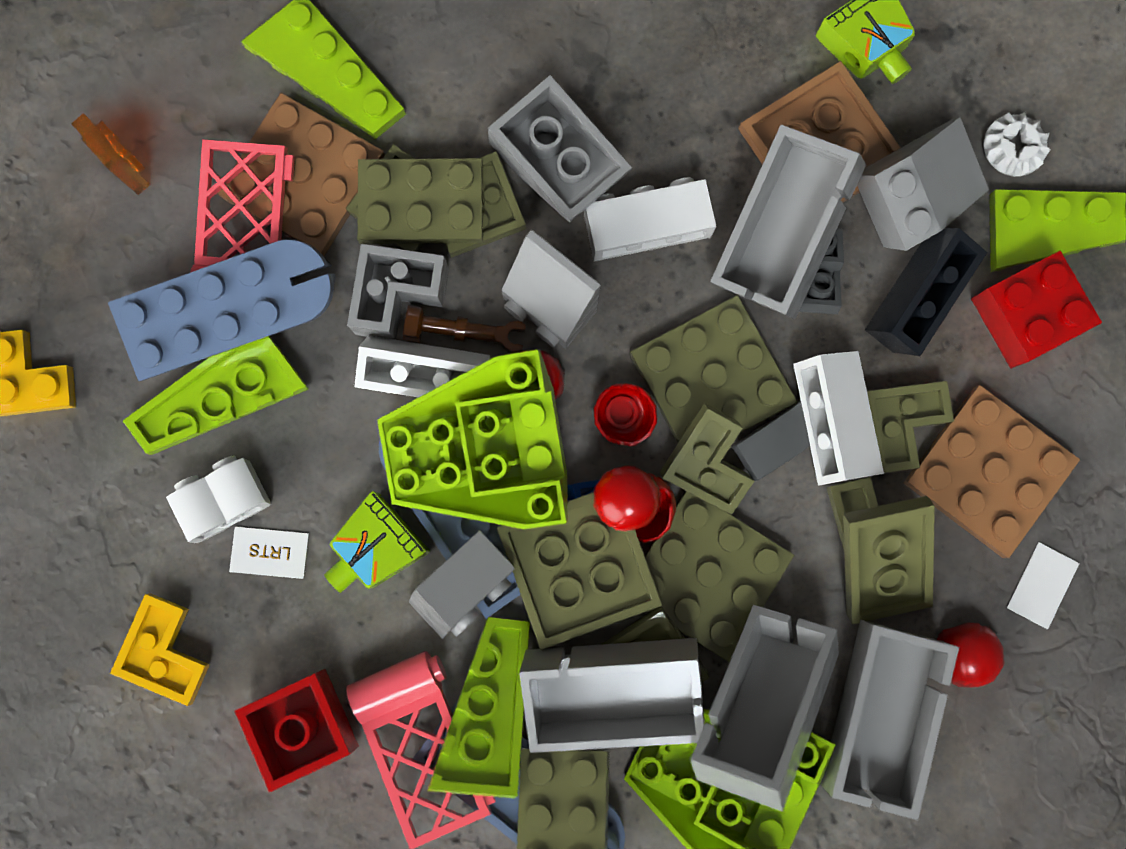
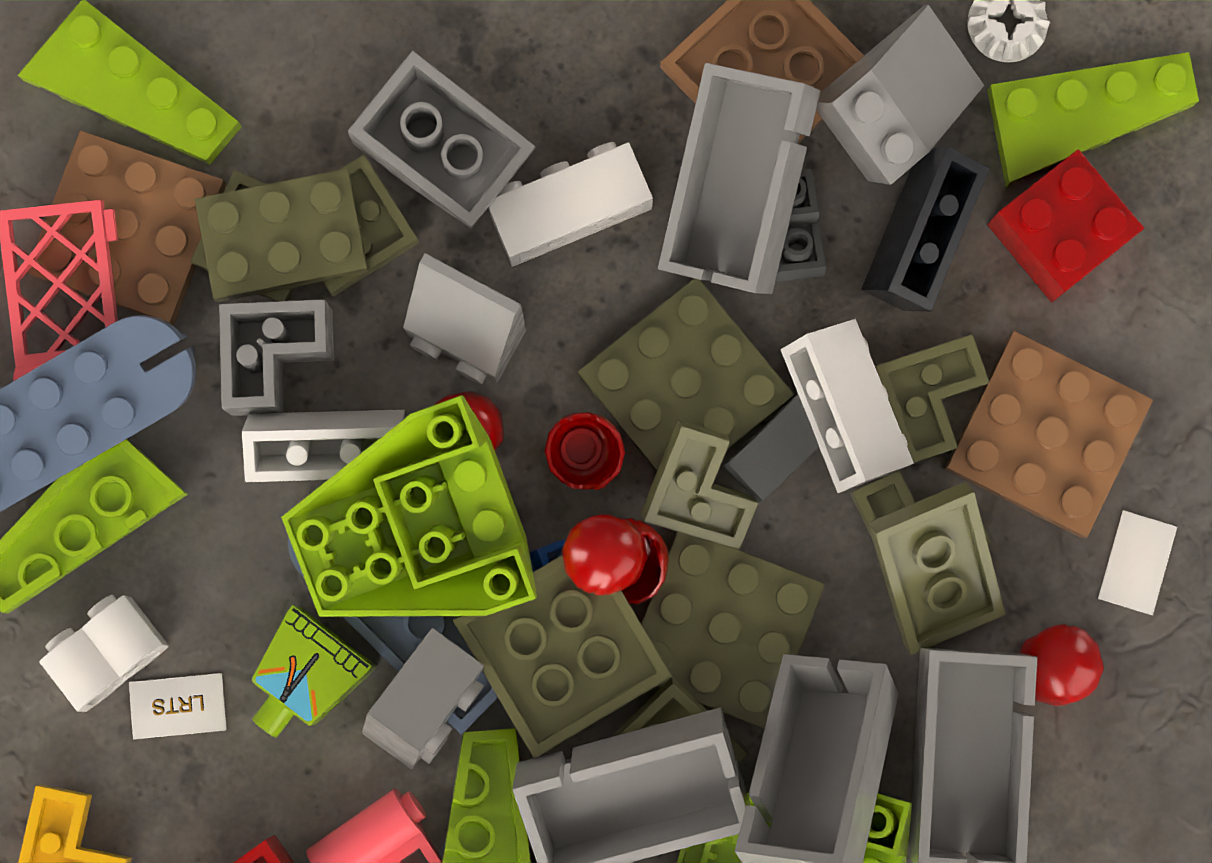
camera: 10 degrees left, 0 degrees up
(417, 322) = (362, 383): reddish brown piece -> none

